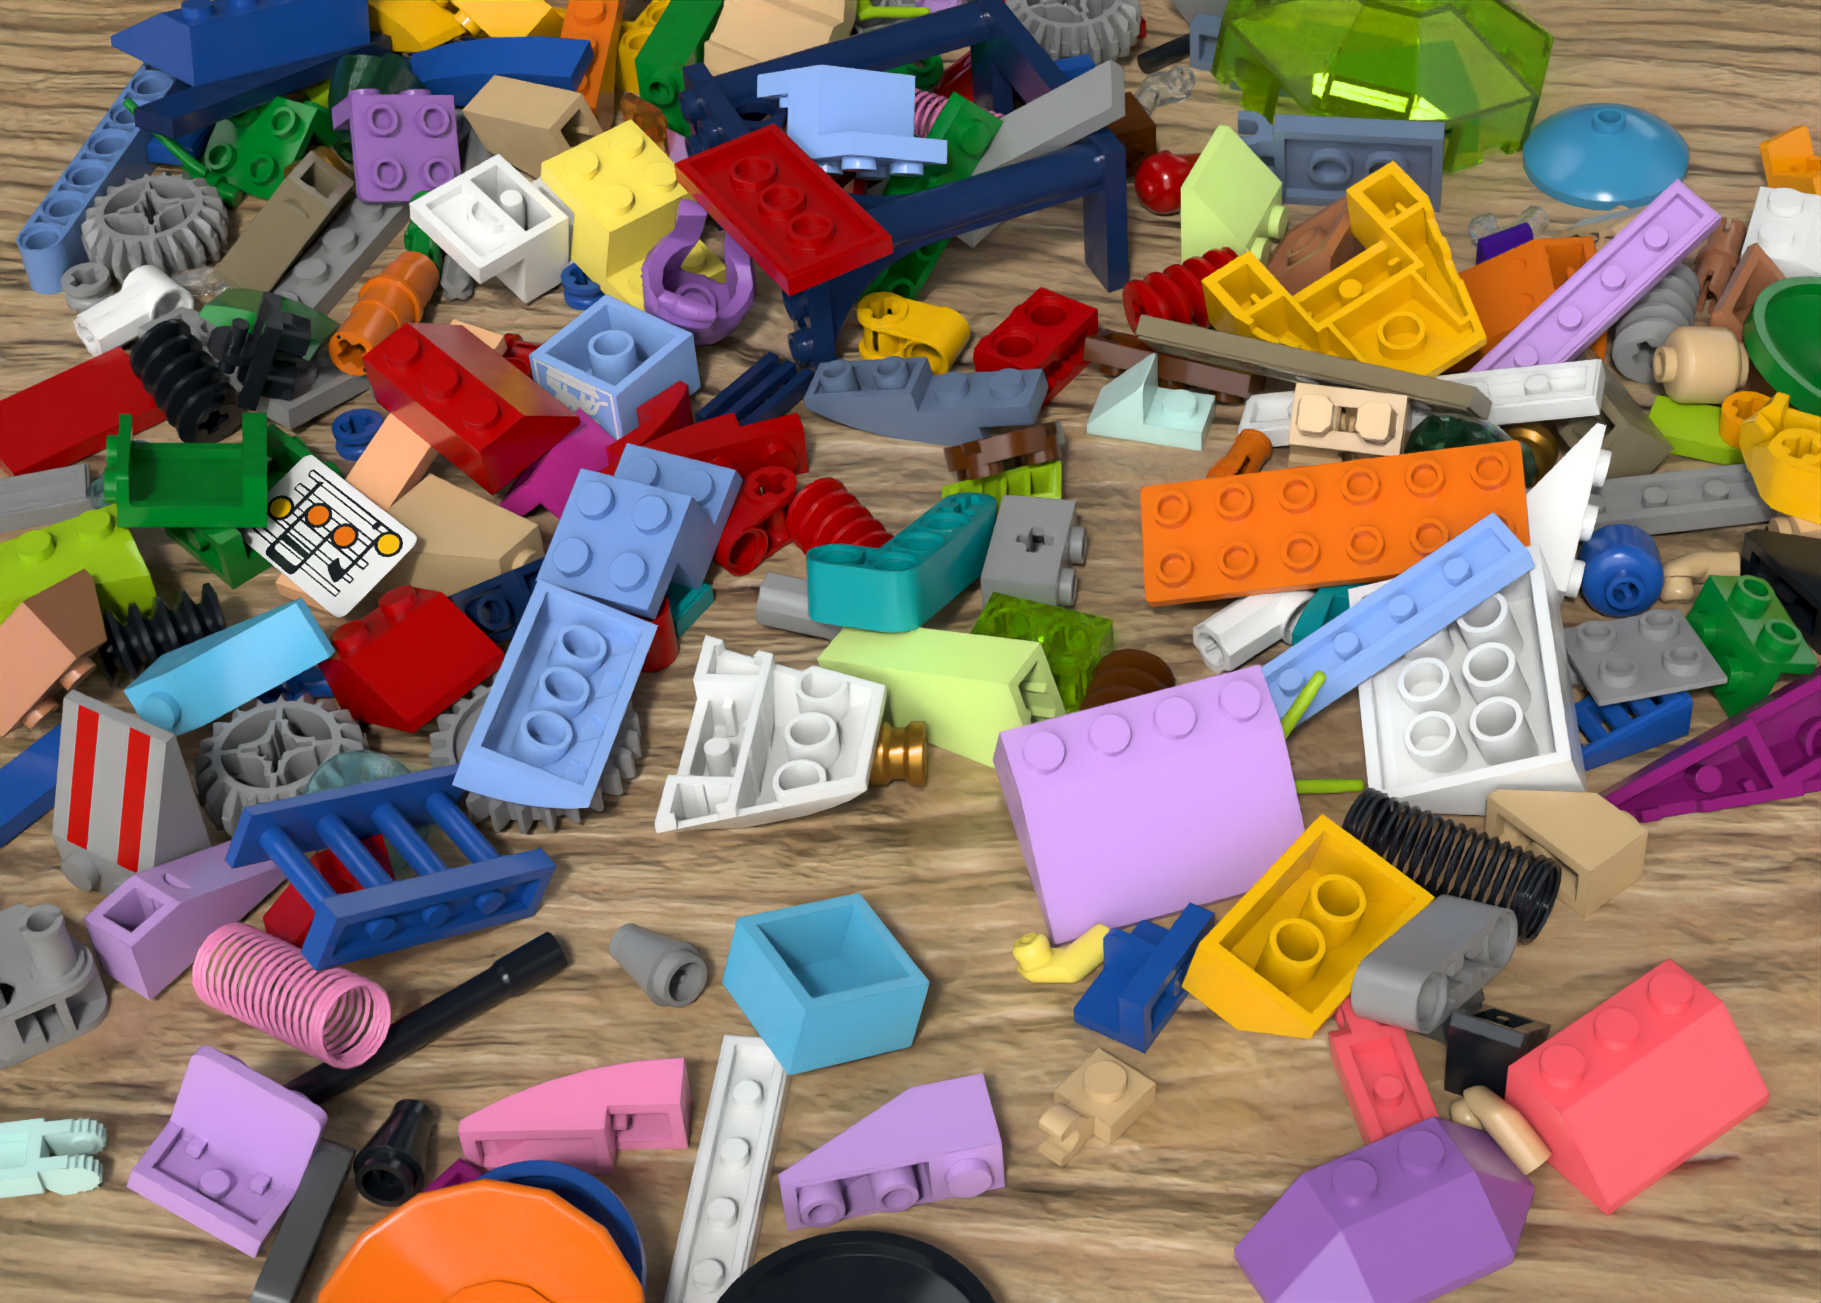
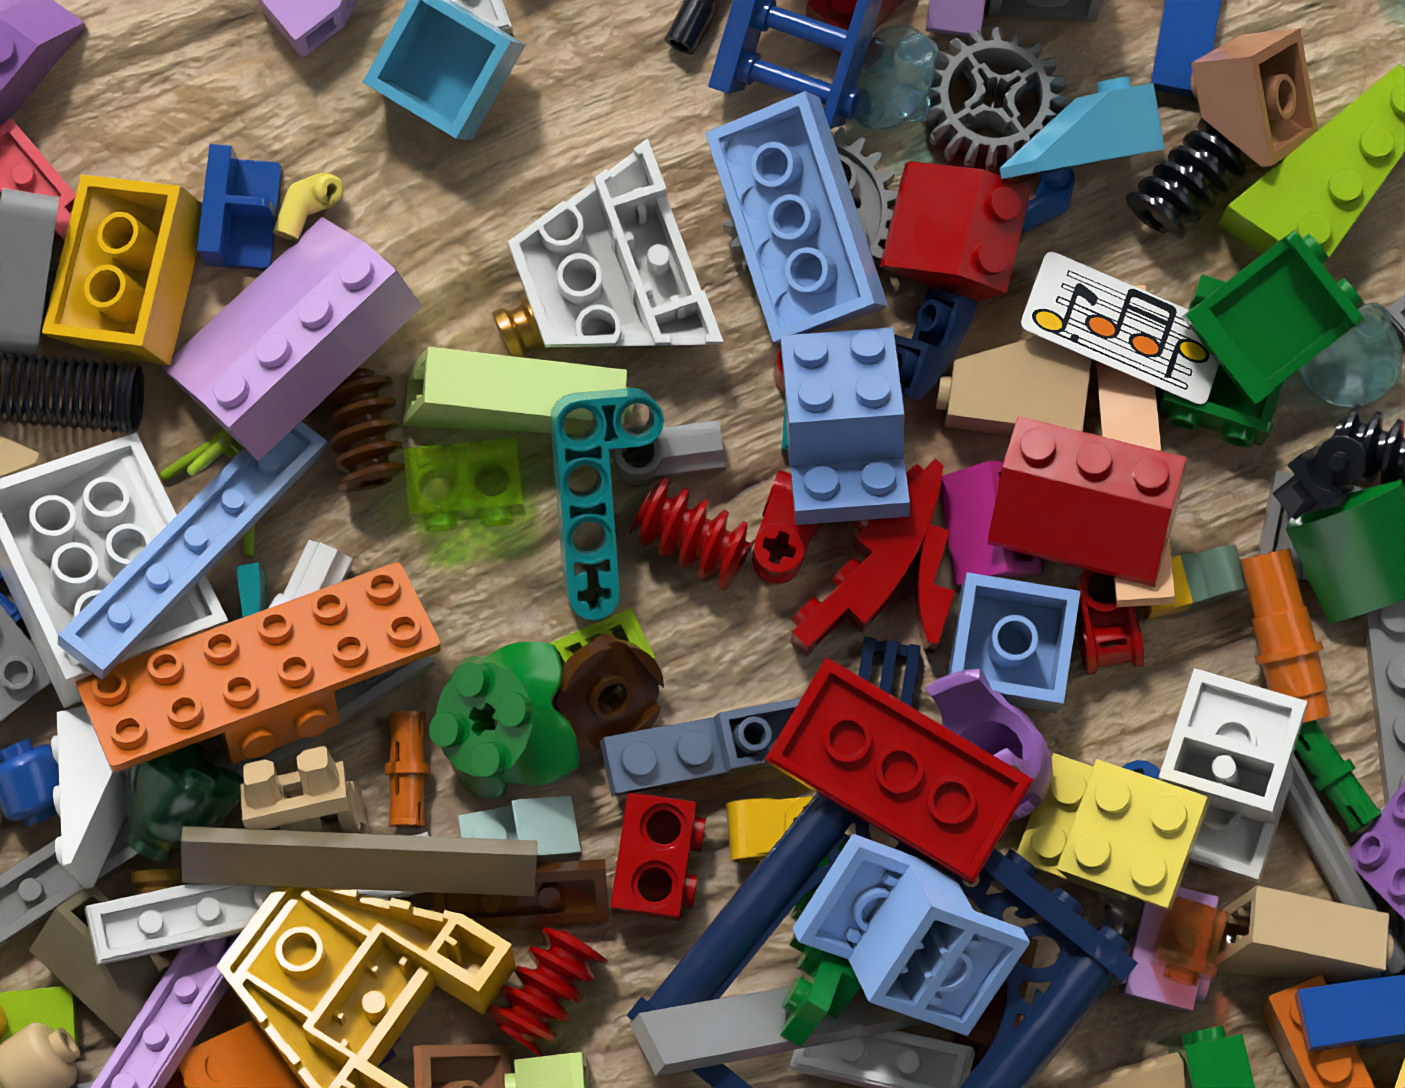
camera: 150 degrees right, 35 degrees up
(355, 431) = (1229, 501): blue bush -> none
(660, 965) = (594, 60): light grey cone -> none
(1034, 551) = (514, 550): light grey brick -> none
(1096, 1100) = (225, 95): tan plate -> none
(1112, 445) = (531, 738): none -> green brick

